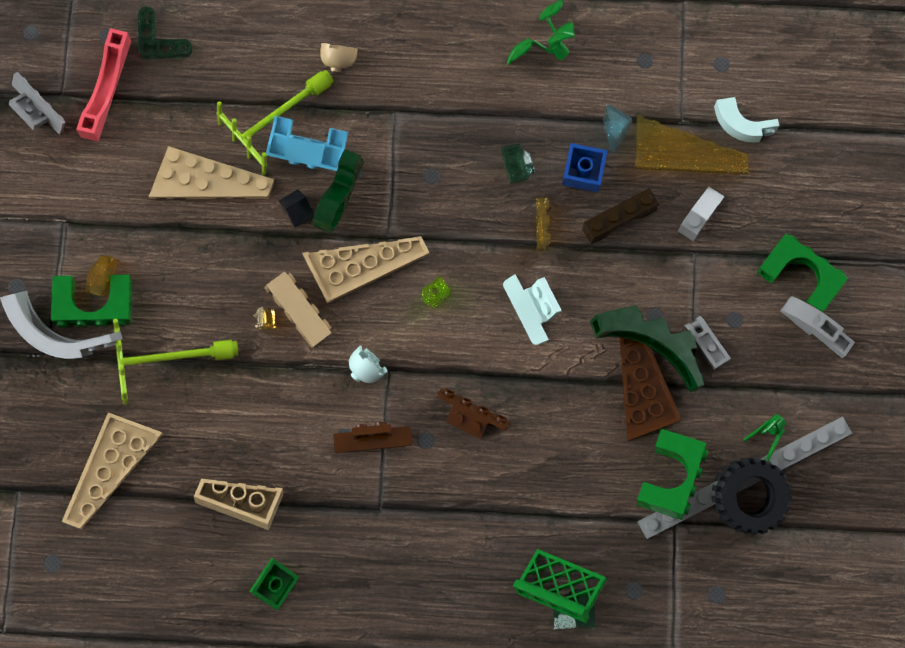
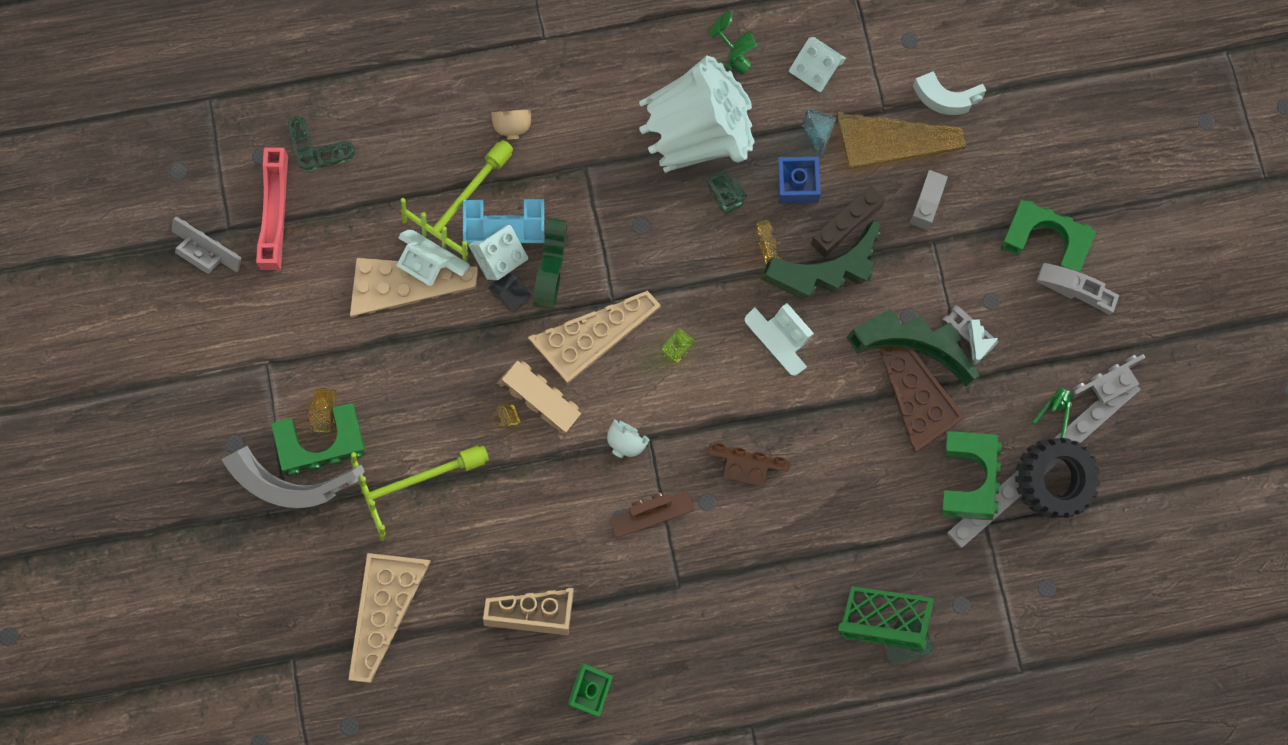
camera: 15 degrees left, 0 degrees up
(228, 159) = (425, 258): none -> light aqua plate
(295, 171) = (499, 253): none -> light aqua bracket
(508, 90) = (700, 117): none -> light aqua piece
(561, 257) = (801, 279): none -> dark green arch
(629, 65) = (816, 63): none -> light aqua bracket
(712, 359) = (978, 346): none -> light aqua slope
(828, 421) = (1113, 384): none -> light grey bracket

